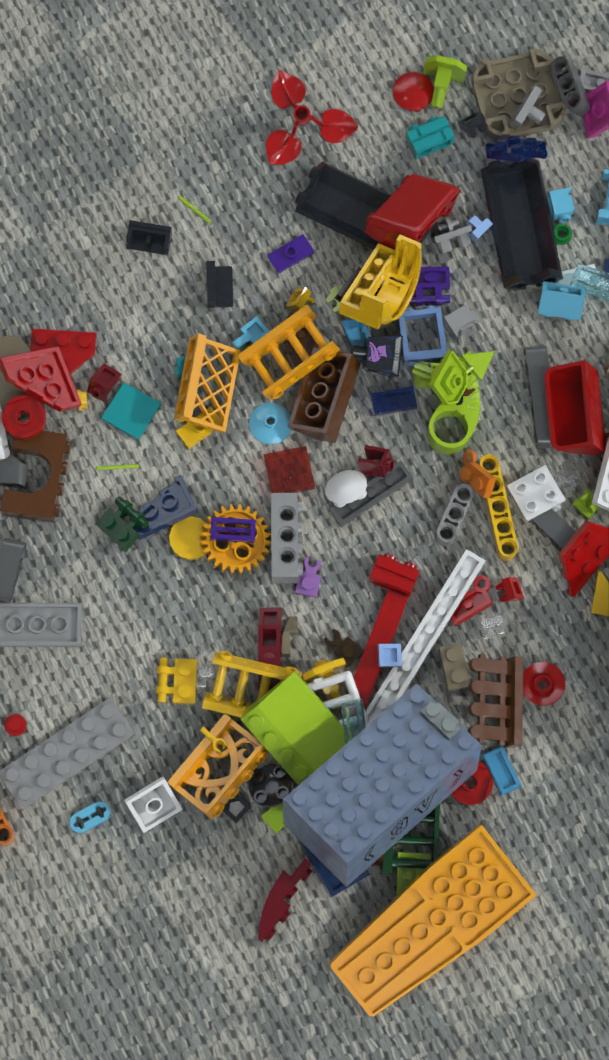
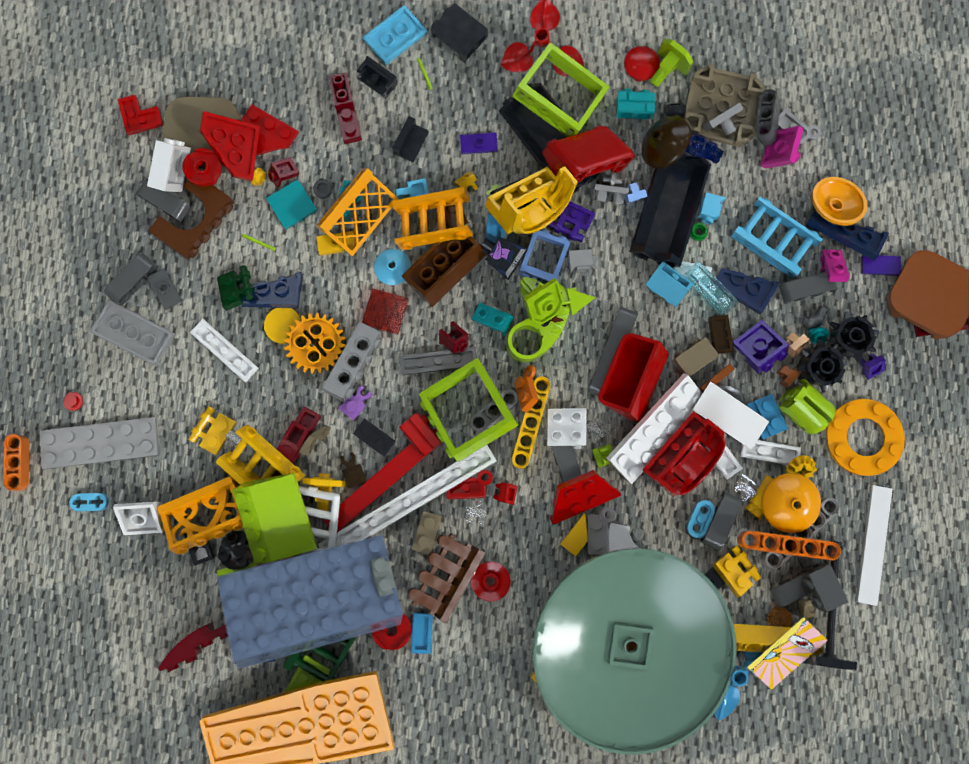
camera: 30 degrees right, 5 degrees up
(46, 563) = (165, 289): none -> dark grey plate
(133, 285) = (345, 108): none -> dark red slope
(142, 184) = (395, 35): none -> medium azure tile
(143, 594) = (224, 350): none -> white tile
(154, 379) = (322, 189): none -> dark grey tile
(209, 148) = (459, 31): none -> black panel
(216, 741) = (209, 495): yellow hand -> none
(233, 538) = (327, 343): dark purple tile -> none
(342, 185) = (545, 108): none -> lime window
(346, 487) = (421, 347): white dish -> none
(348, 602) = (374, 437): none -> black plate
(353, 718) = (320, 535): clear light blue tile -> none
(389, 655) = (380, 497): light blue tile -> none
(393, 401) = (495, 297): clear blue plate -> none
(402, 423) = (492, 318): none -> teal plate
(461, 545) = (483, 438): none -> lime window
(482, 160) = (665, 141): none -> dark brown dish

